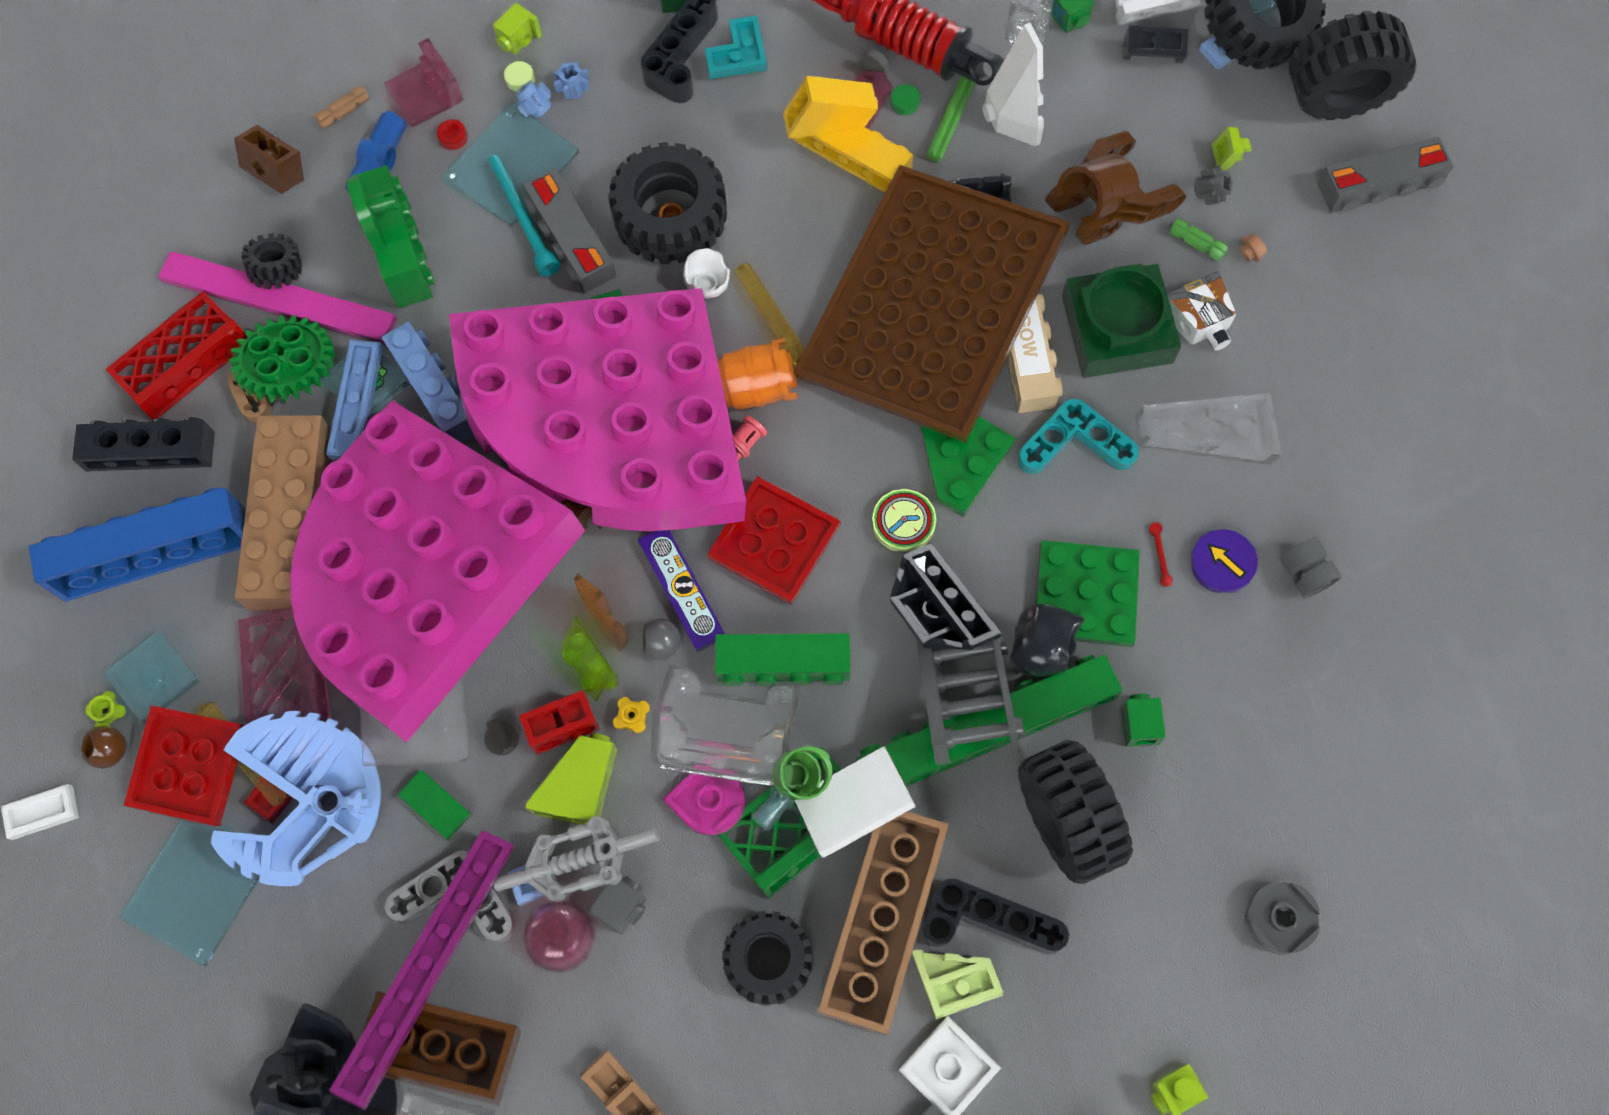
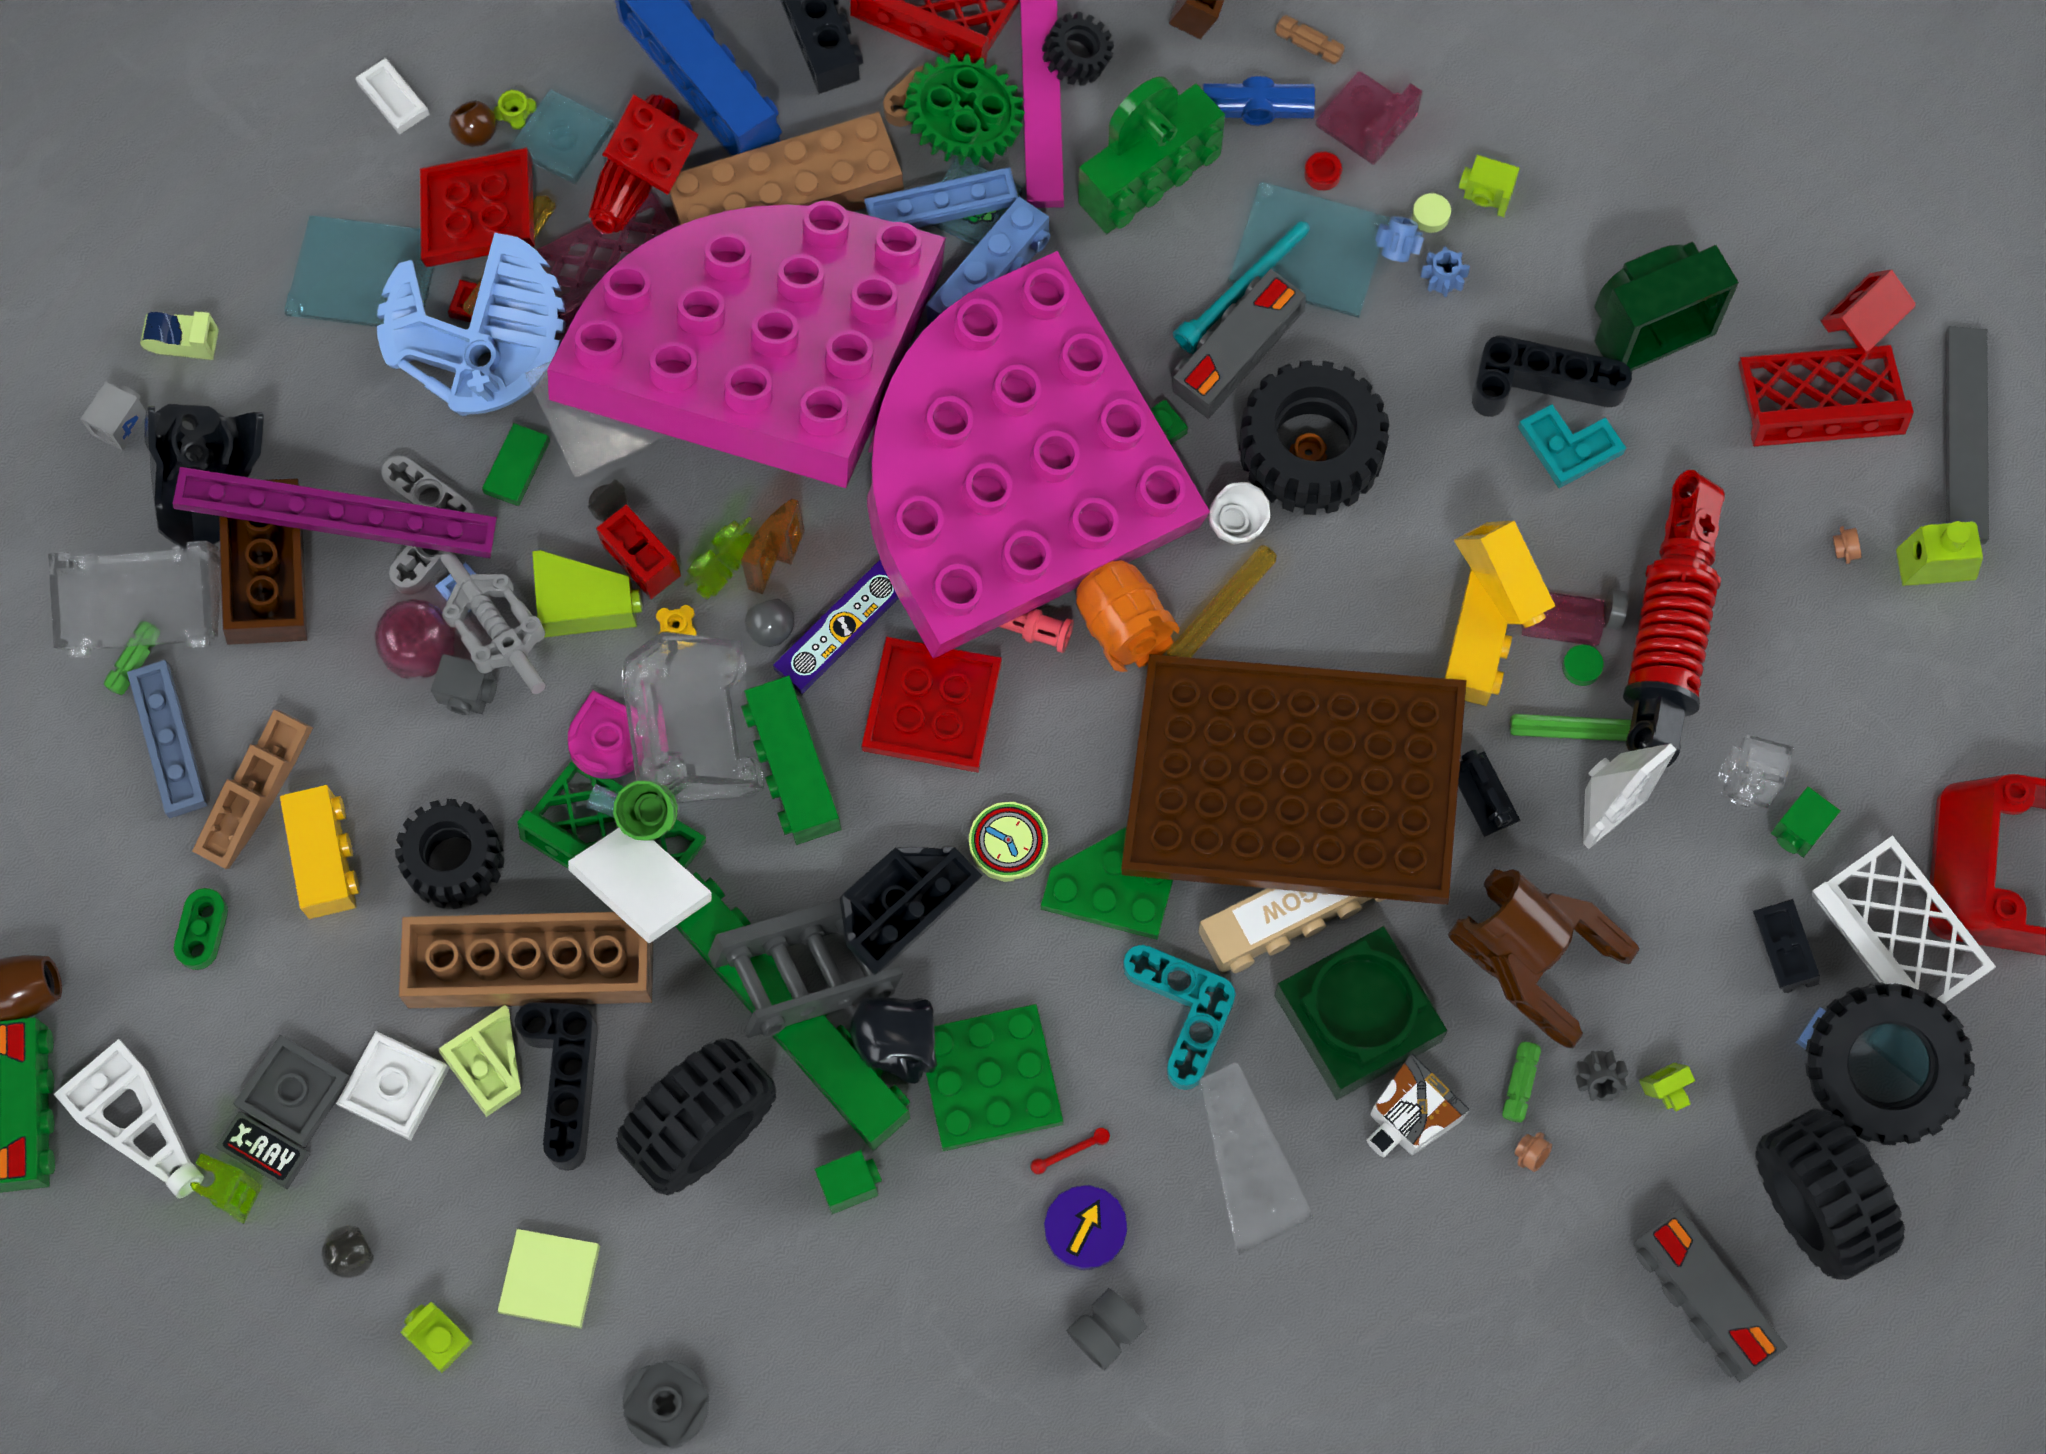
camera: 70 degrees right, 0 degrees up
(181, 1068) = (180, 335): none -> yellowish green leg
(203, 609) = (642, 153): none -> red plate
(723, 1072) = (319, 851): none -> yellow brick
(1153, 983) = (549, 1278): none -> yellowish green tile

